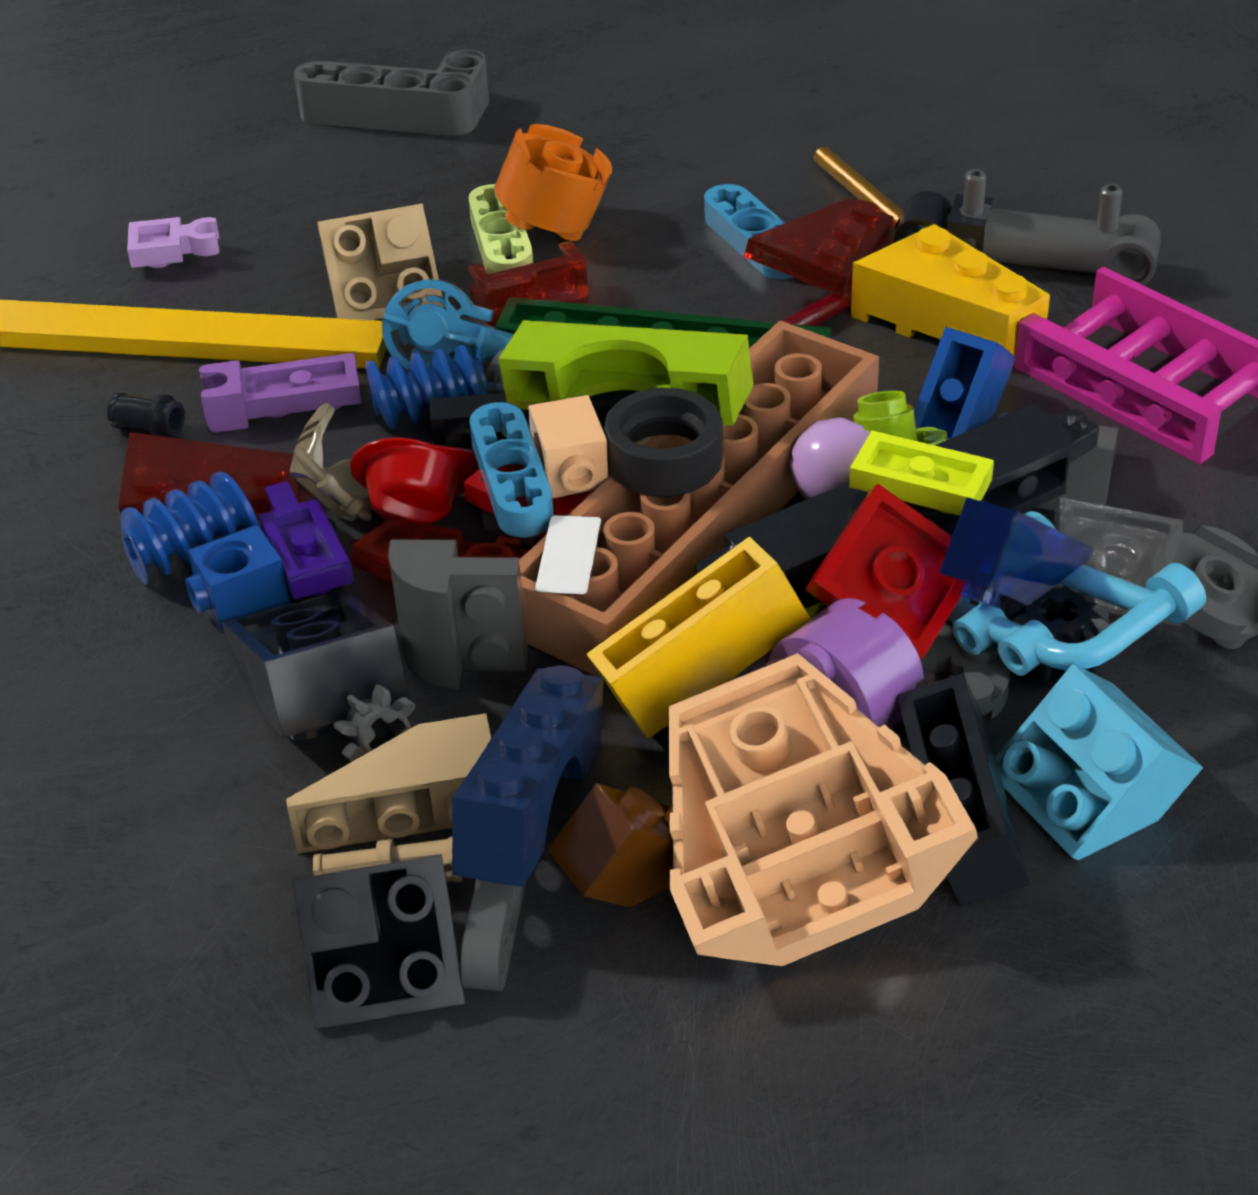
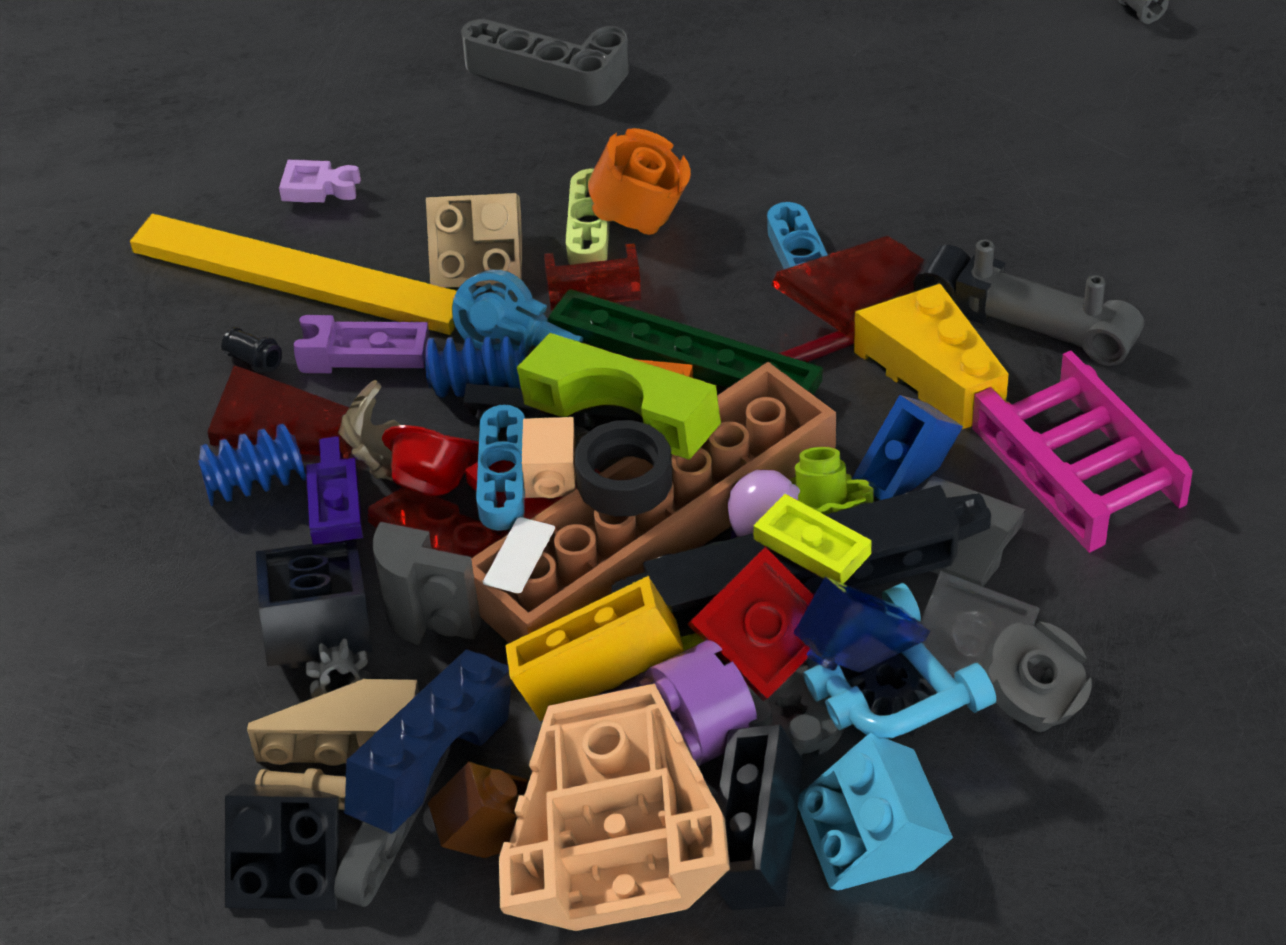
camera: 15 degrees right, 5 degrees up
(236, 576) = (274, 516): blue brick -> none
(855, 183) = (907, 217): pearl gold bar -> none

